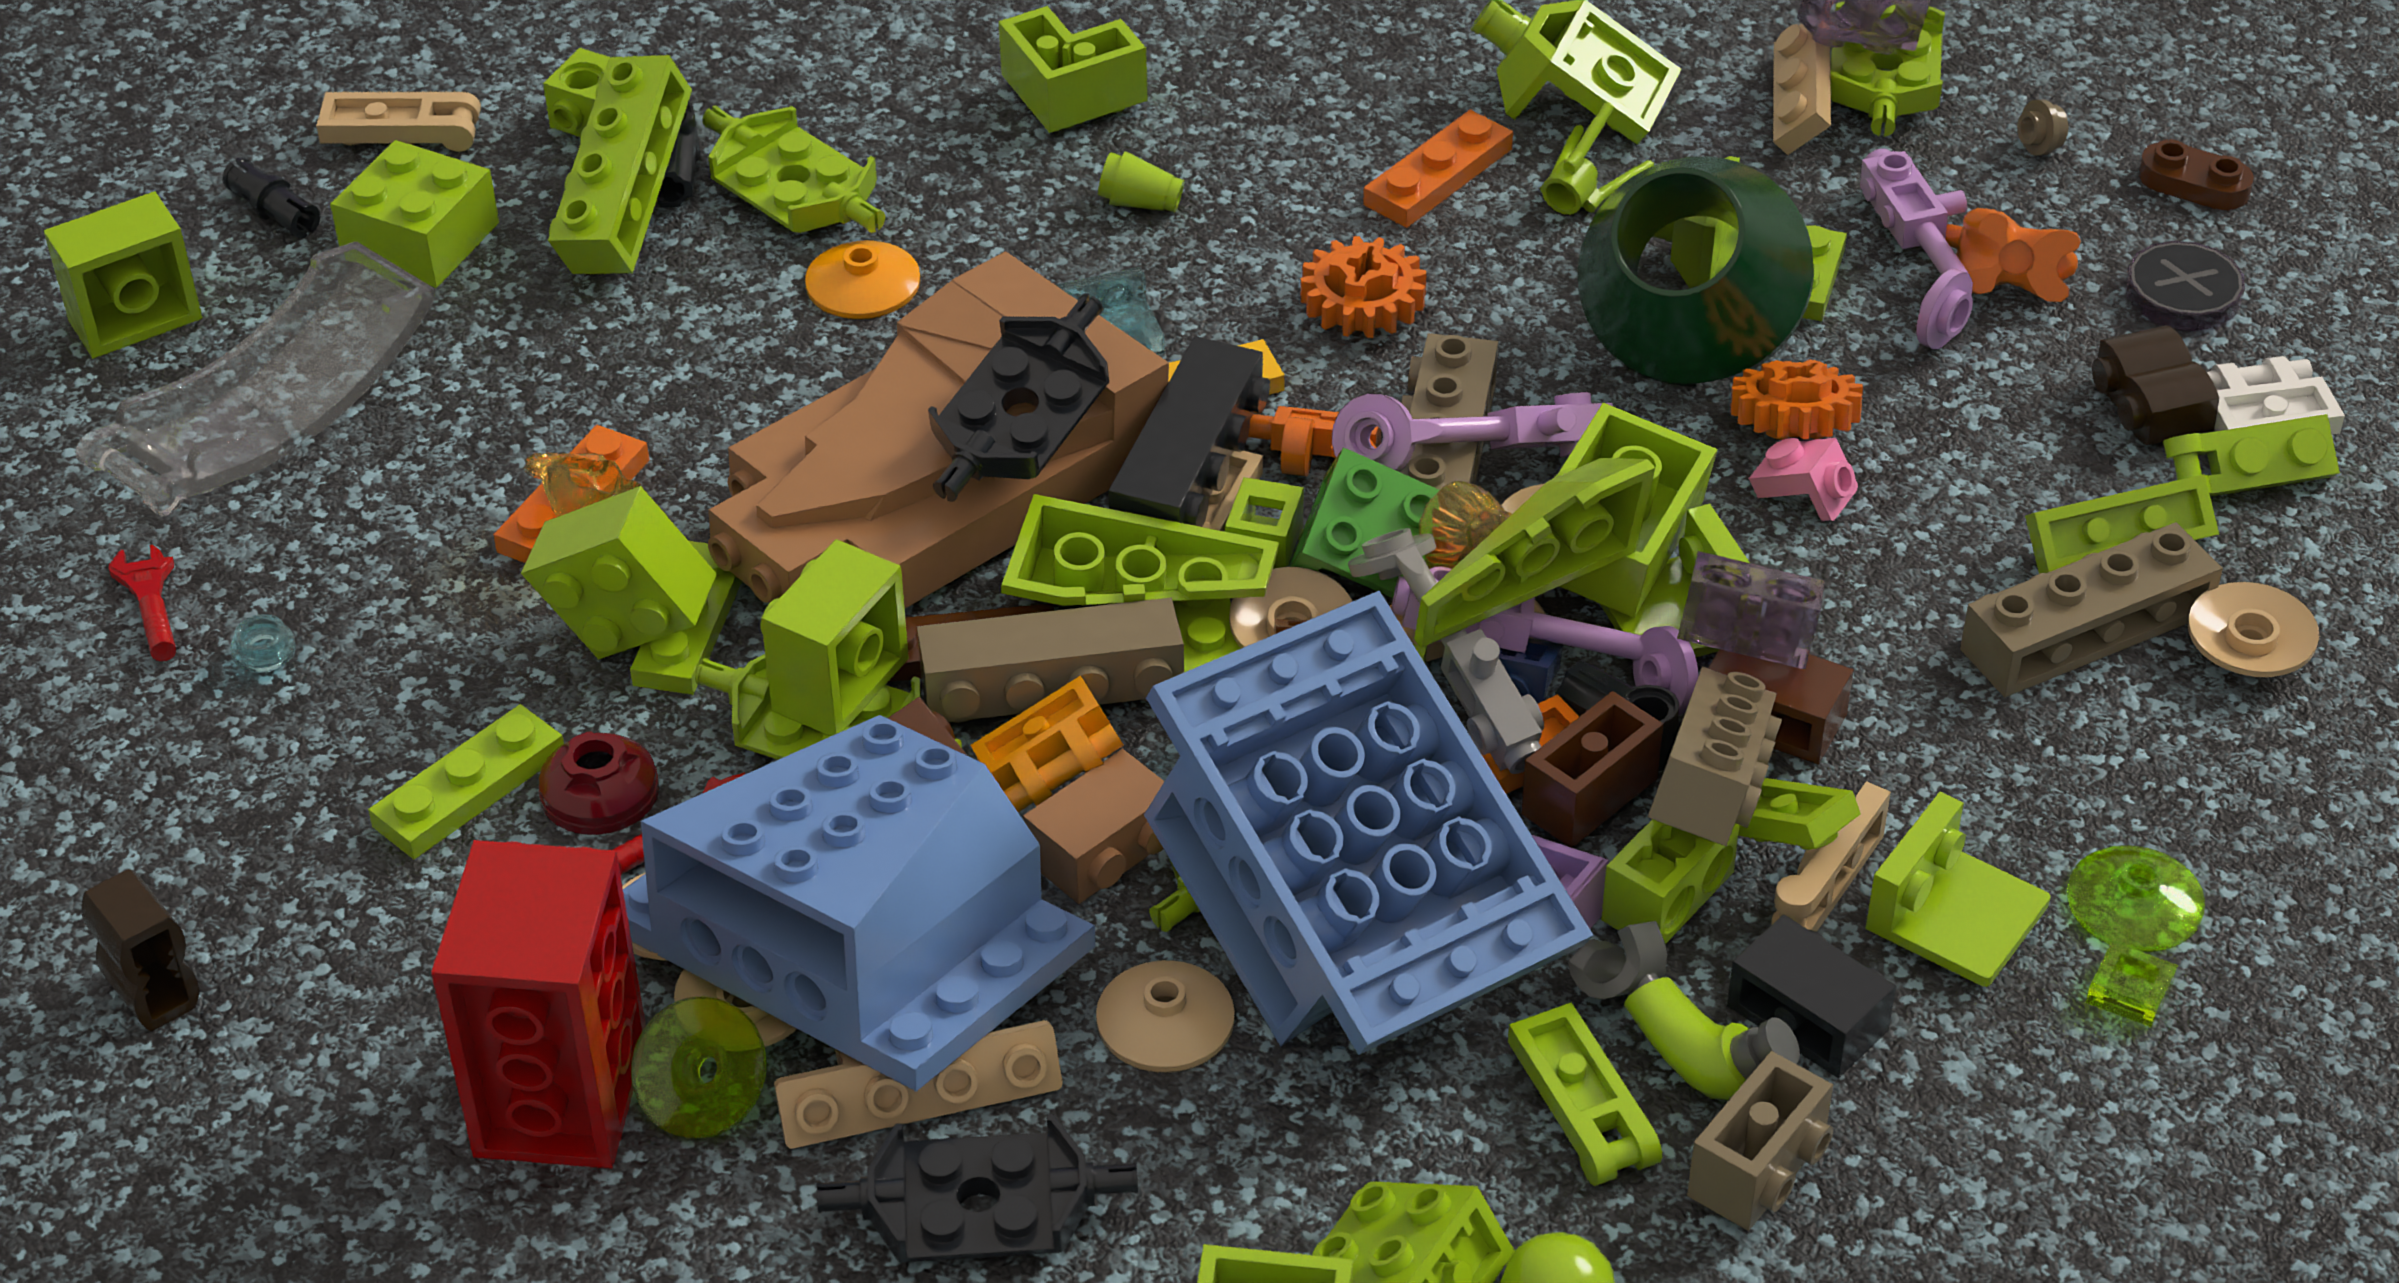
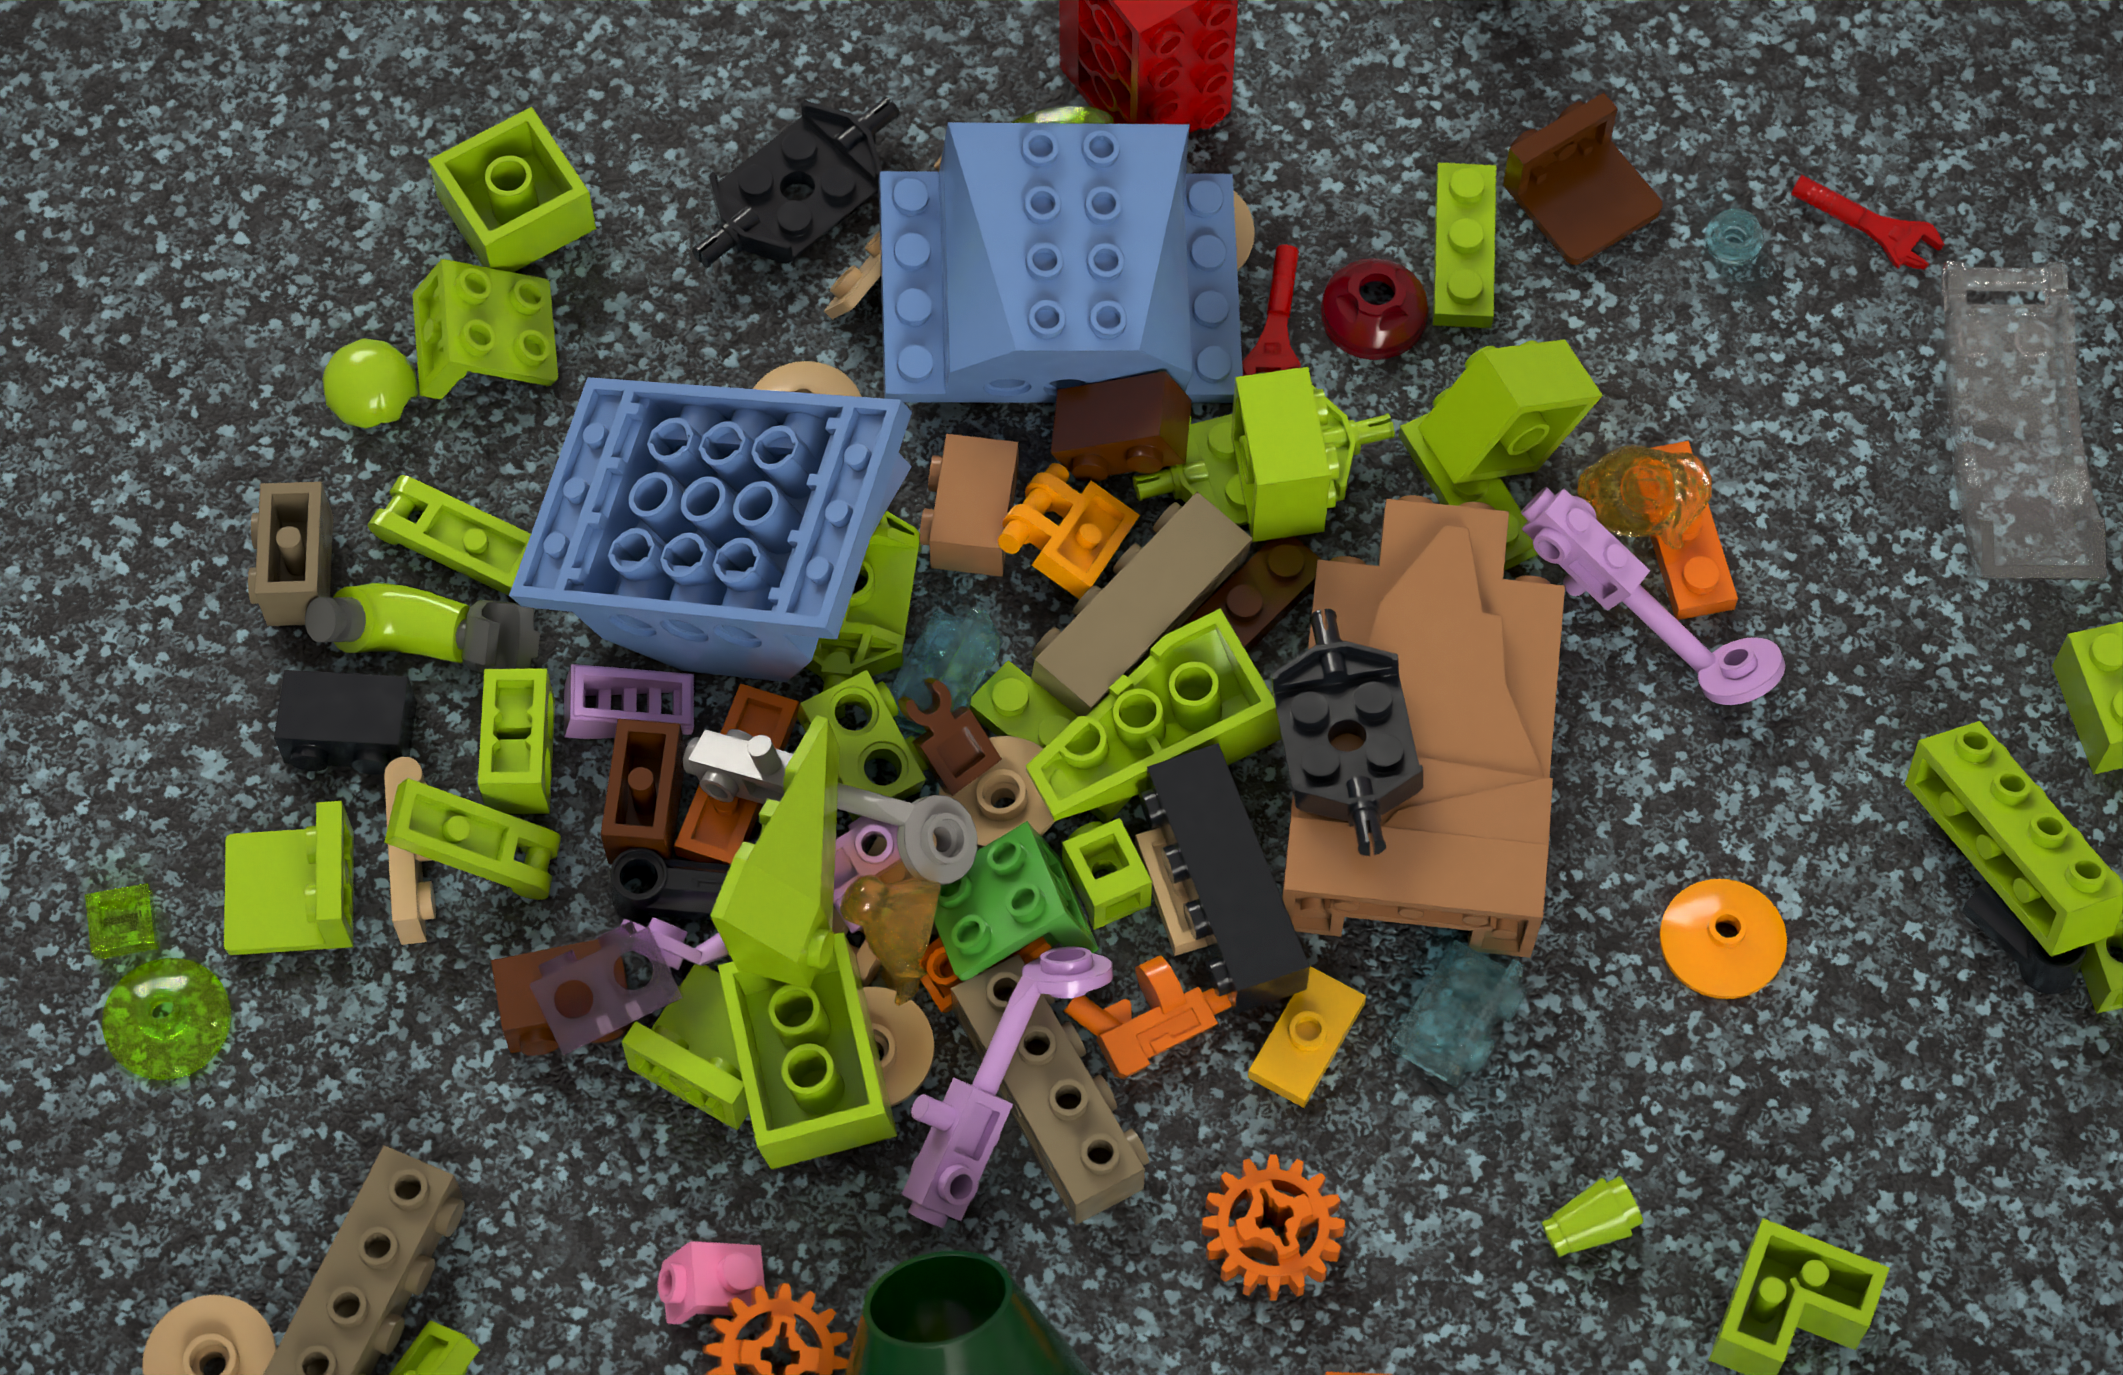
camera: 140 degrees right, 20 degrees up
(323, 748) = (1579, 182): none -> reddish brown bracket
(678, 480) = (1597, 562): none -> lavender piece
(790, 171) = (1950, 979): lime plate -> none
(1718, 757) = (530, 815): dark tan brick -> none

